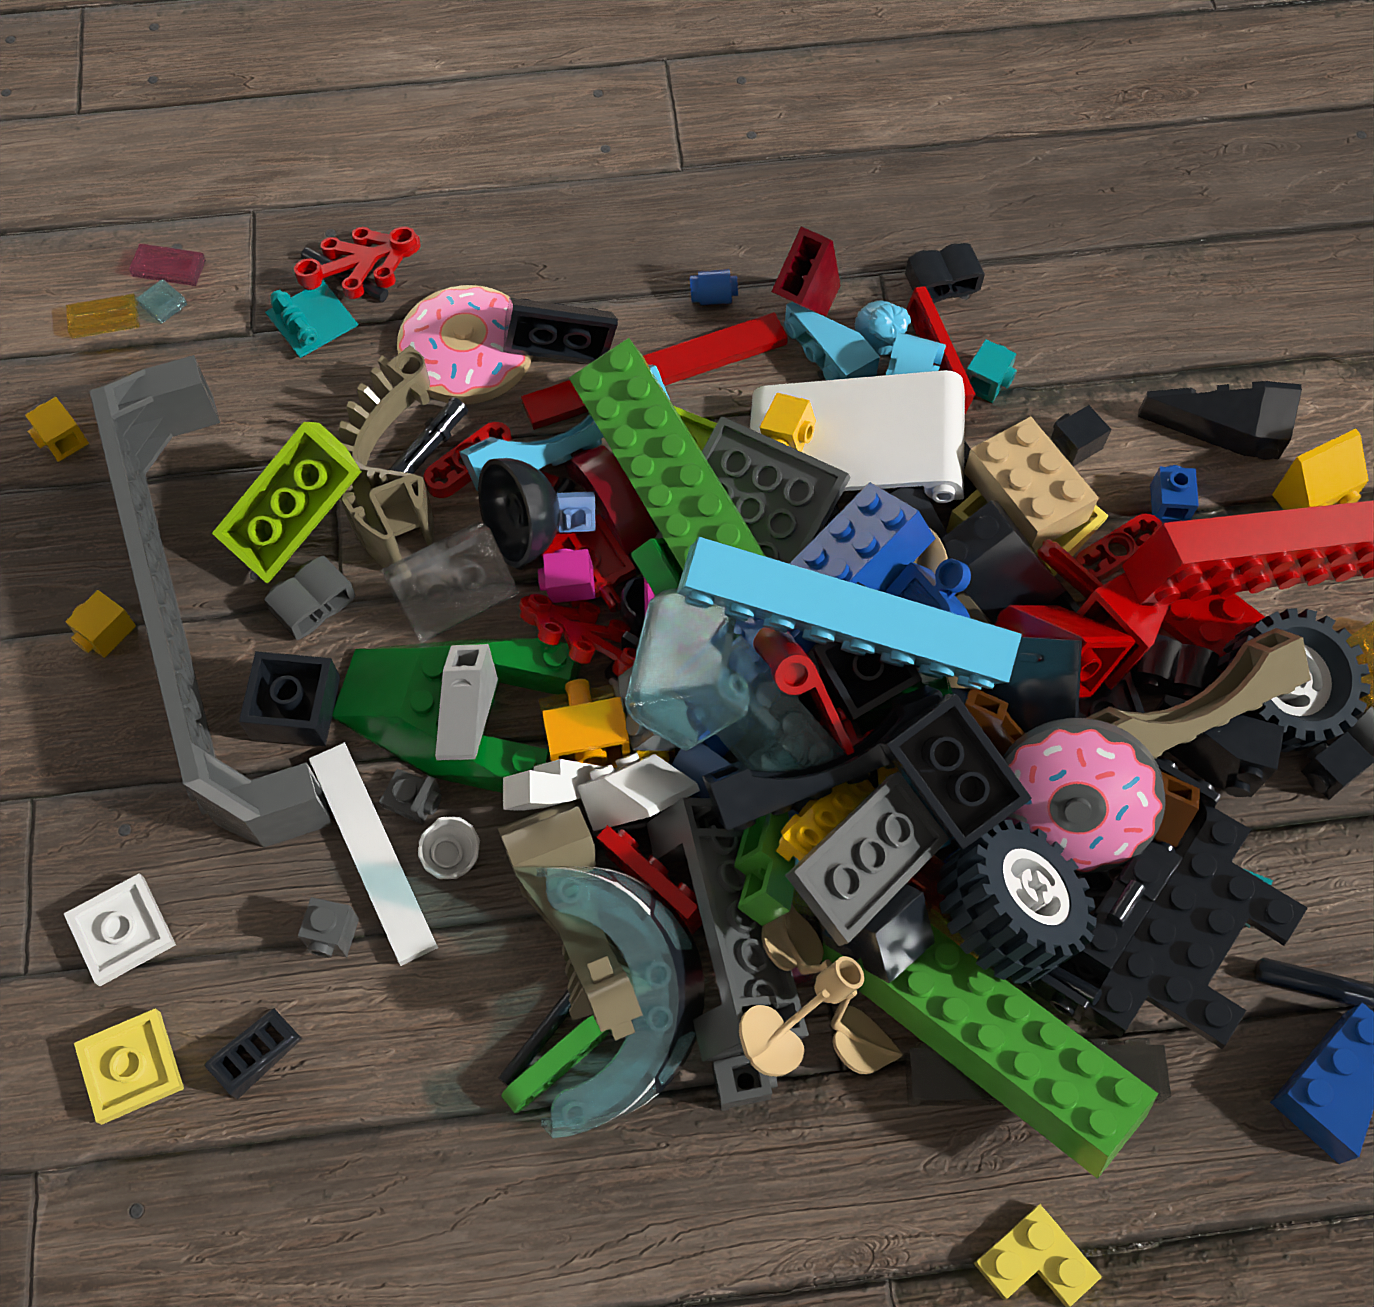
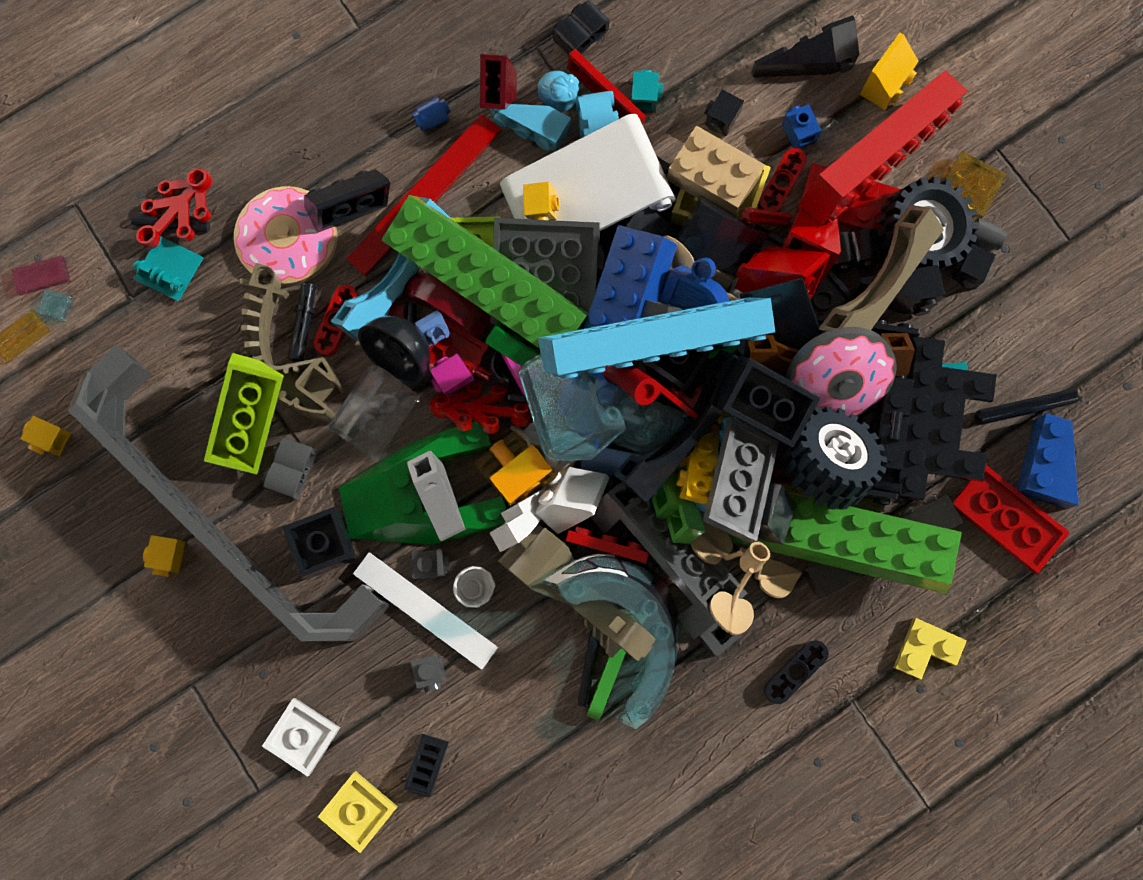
camera: 25 degrees left, 15 degrees up
(853, 1171) = (815, 662): none -> black beam
(1246, 1134) = (1010, 520): none -> red plate

